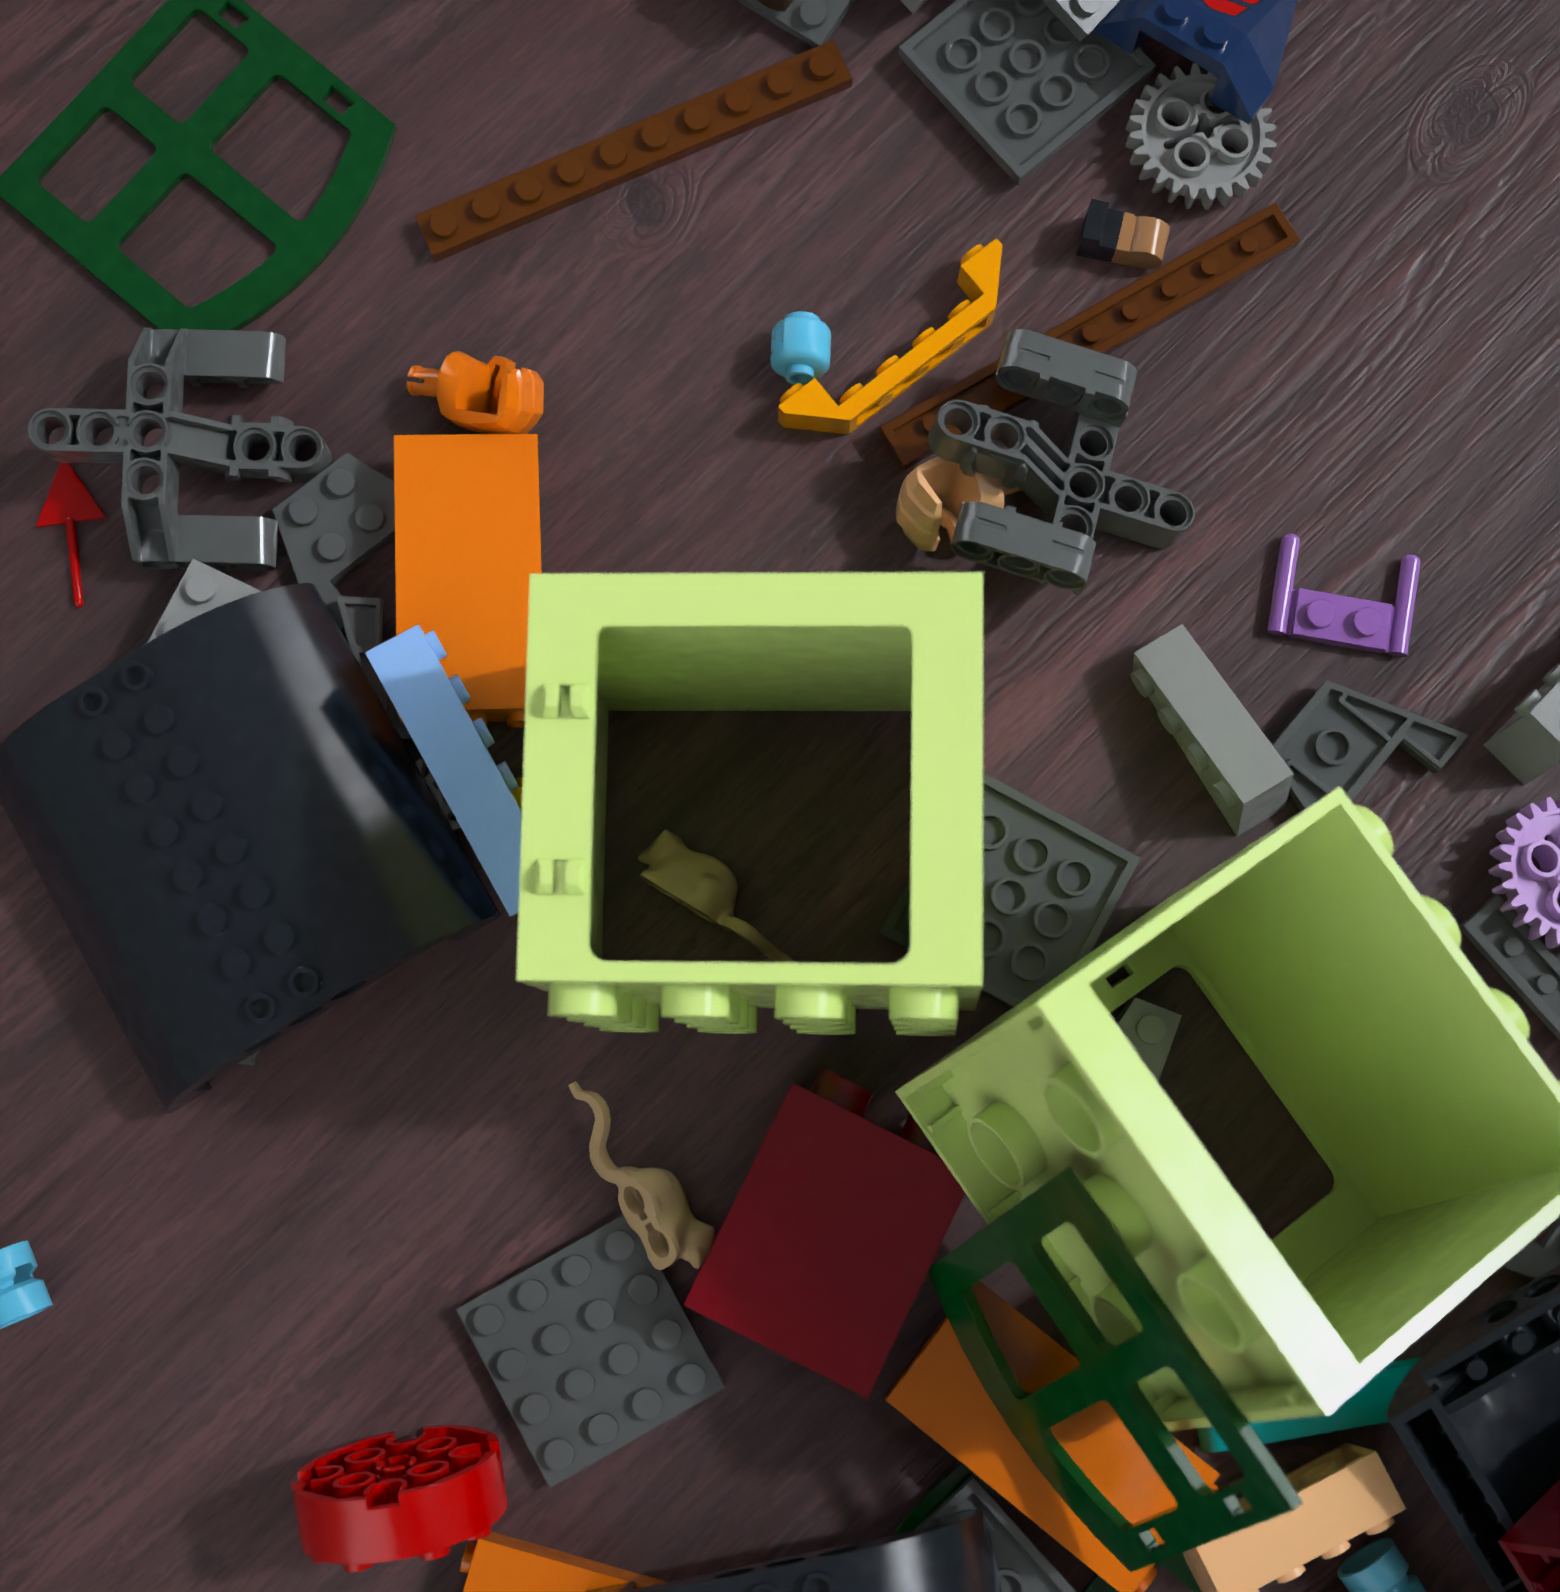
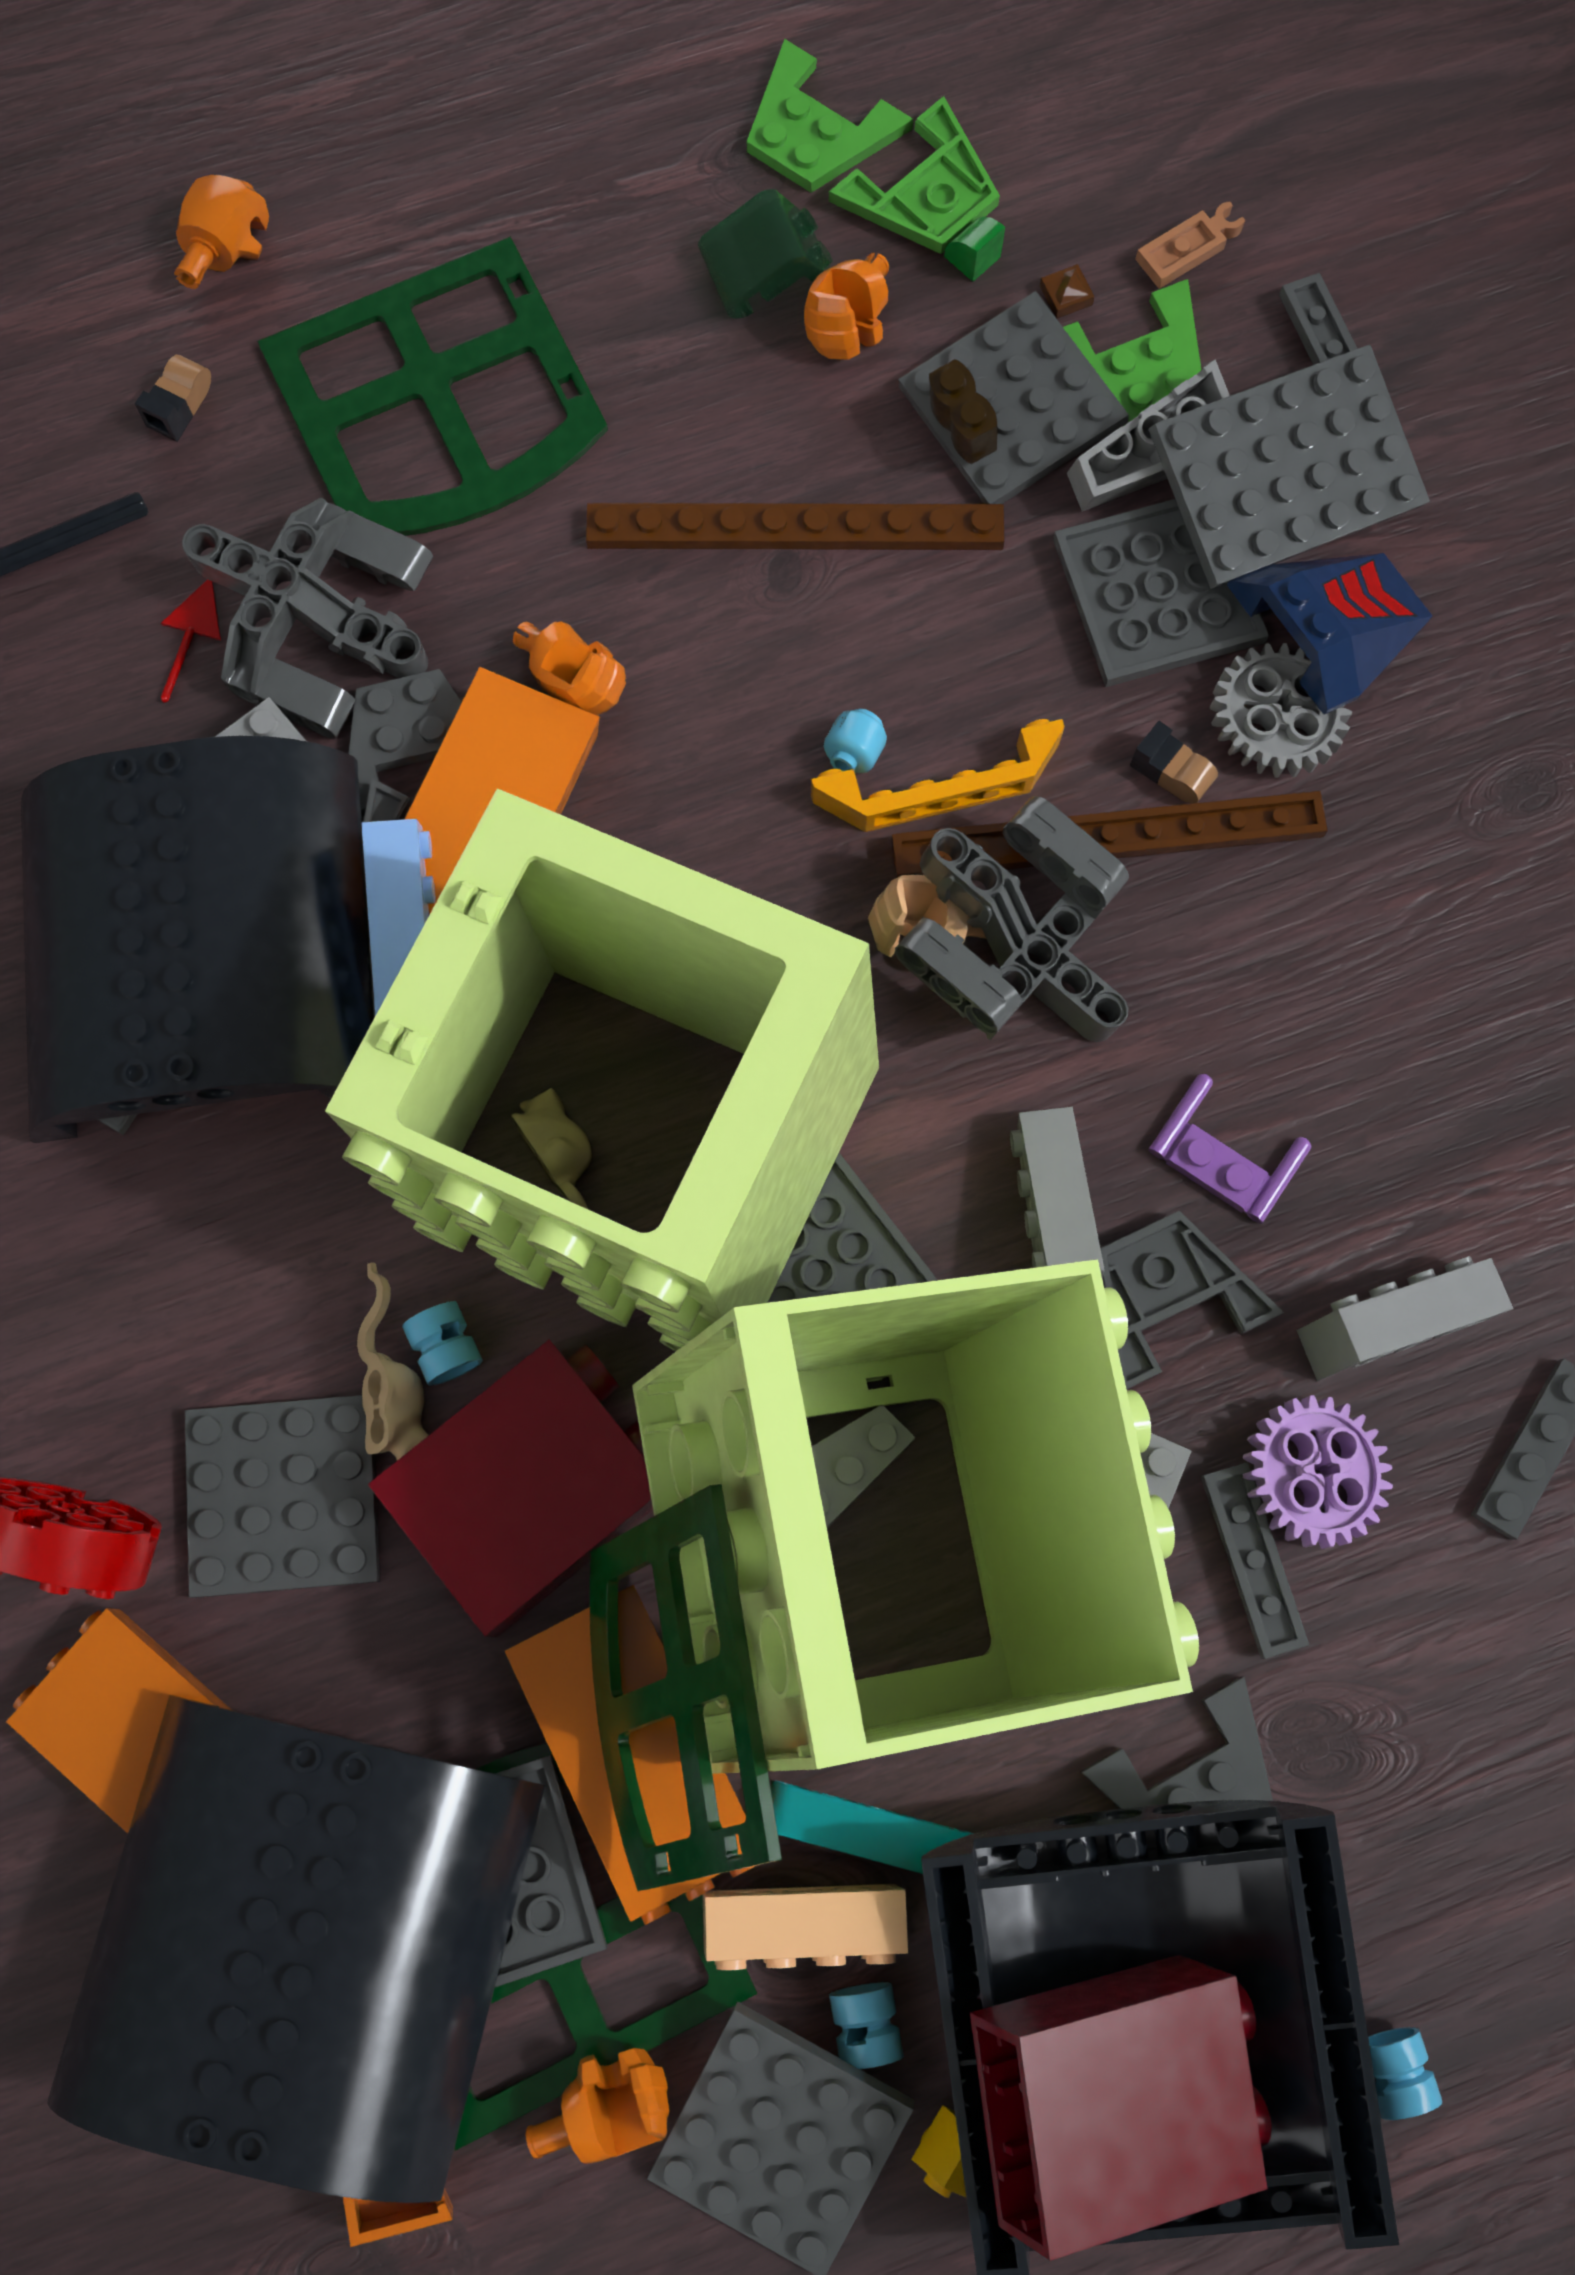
camera: 25 degrees right, 5 degrees down
(678, 1129) = (441, 1341): none -> medium azure wheel

